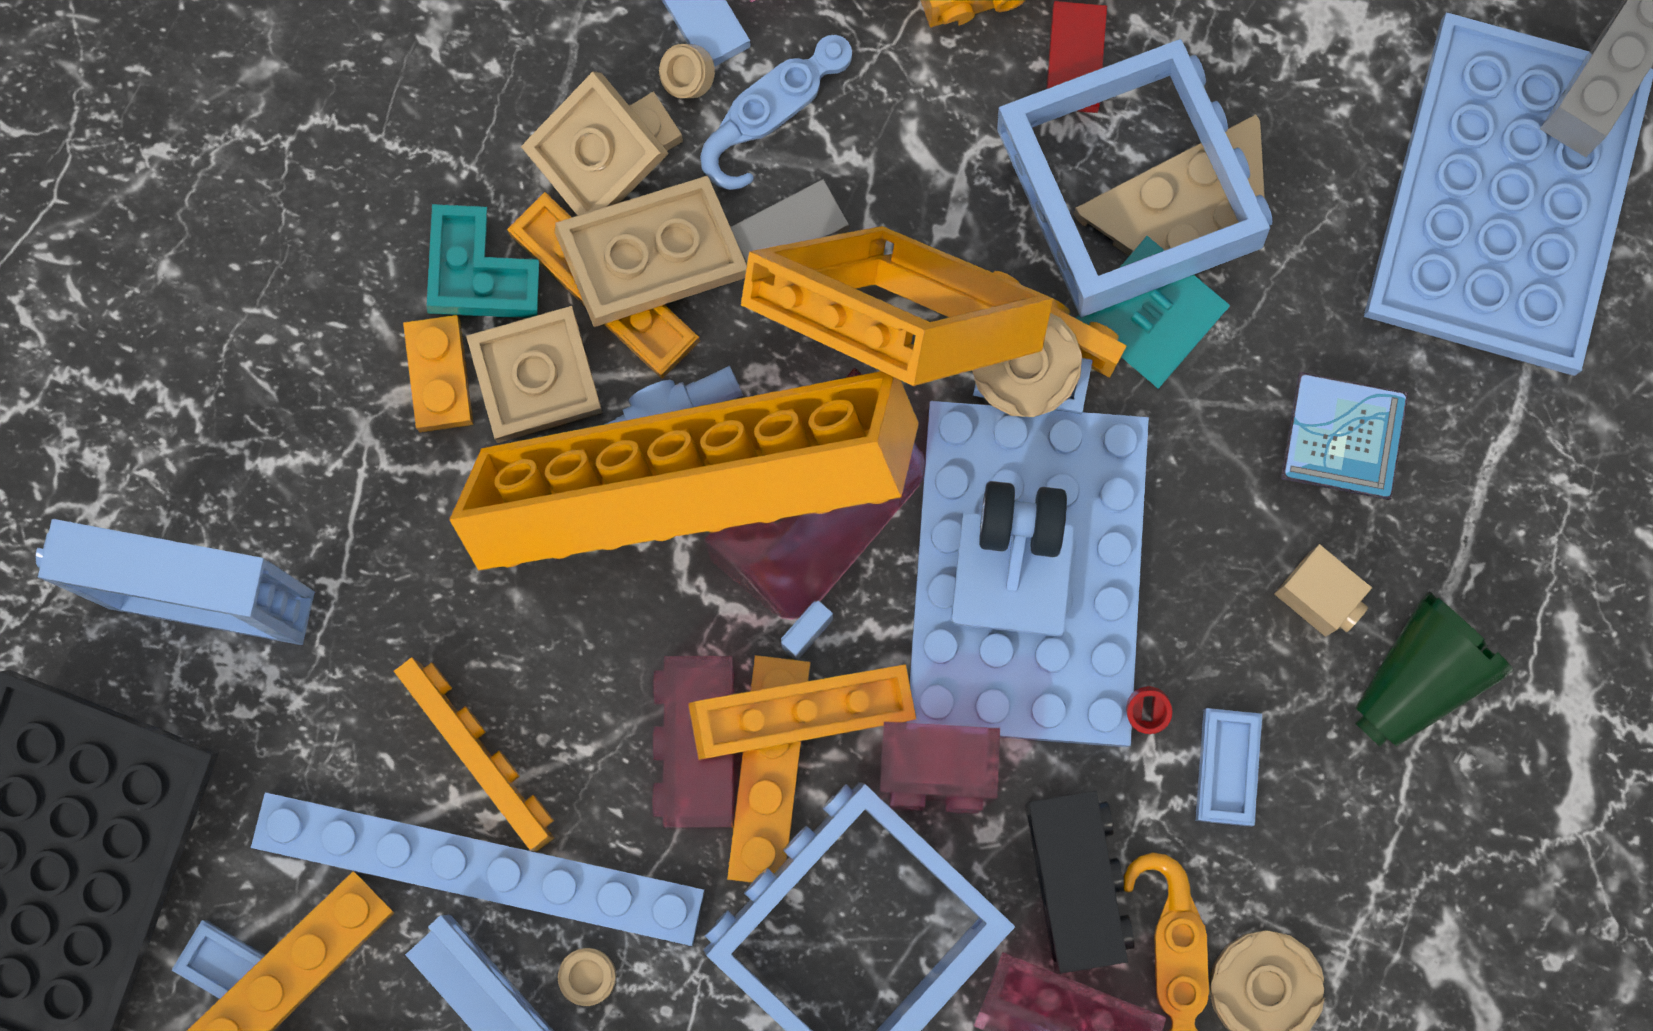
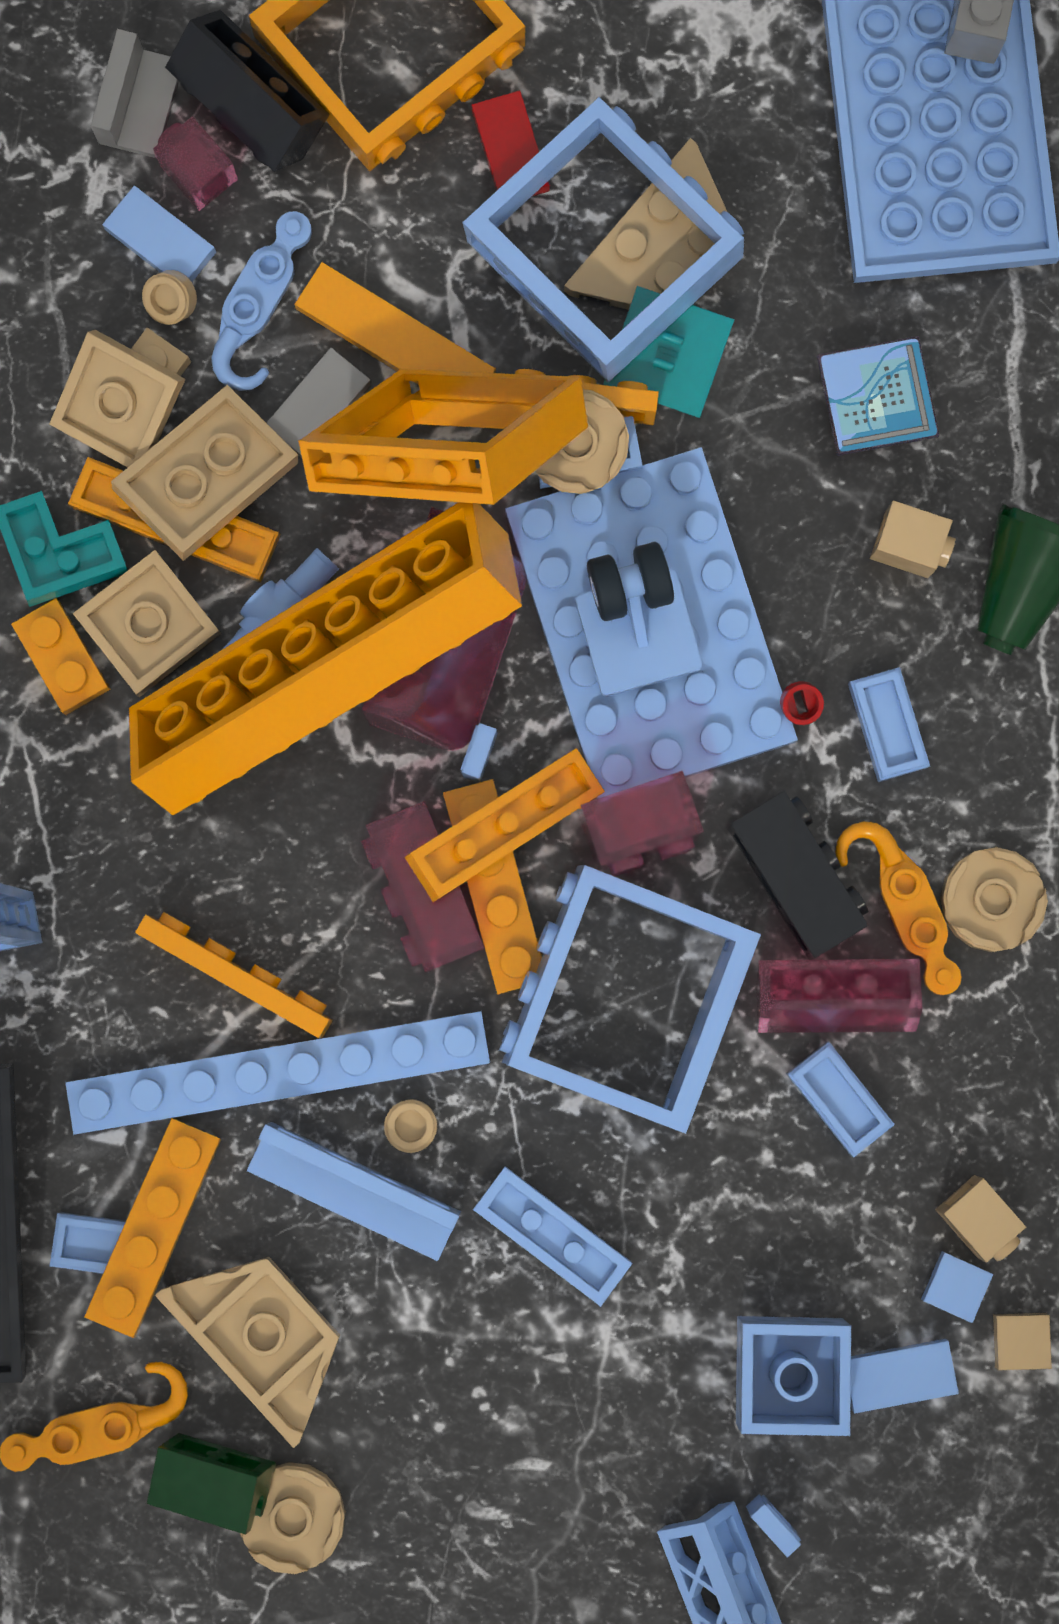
camera: 25 degrees left, 5 degrees up
(879, 178) = (381, 327): none -> light orange tile

